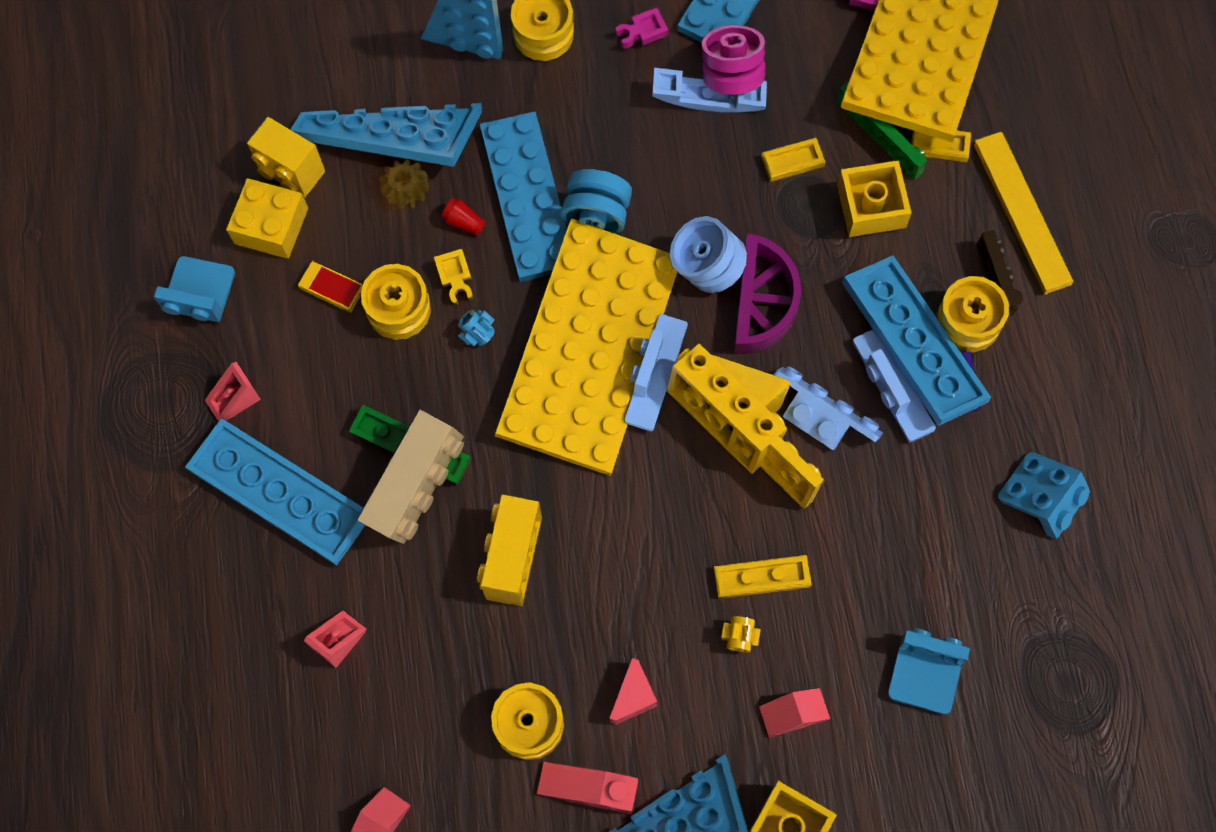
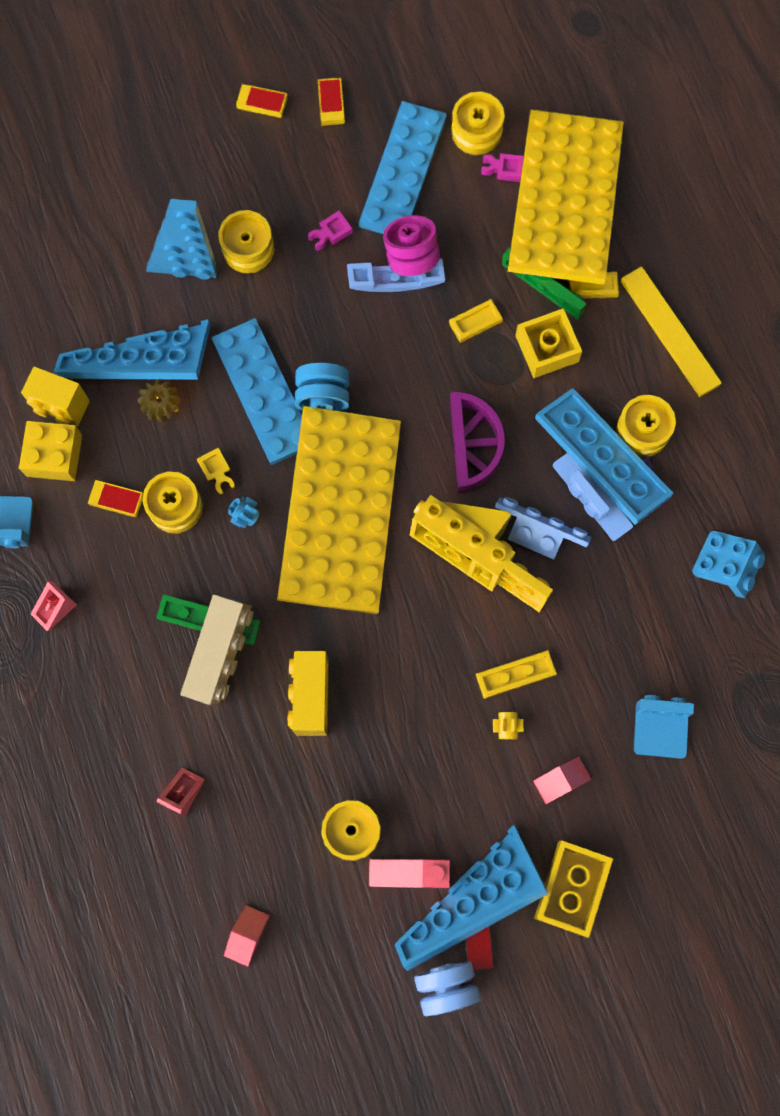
camera: 10 degrees left, 5 degrees up
(278, 491) = (108, 679): dark azure plate -> none
(461, 216) = (212, 419): red cone -> none
(634, 696) = (432, 791): coral slope -> none
(655, 371) = (398, 521): light blue bracket -> none
(708, 254) = (422, 416): light blue wheel -> none
(992, 255) = (659, 386): dark brown plate -> none

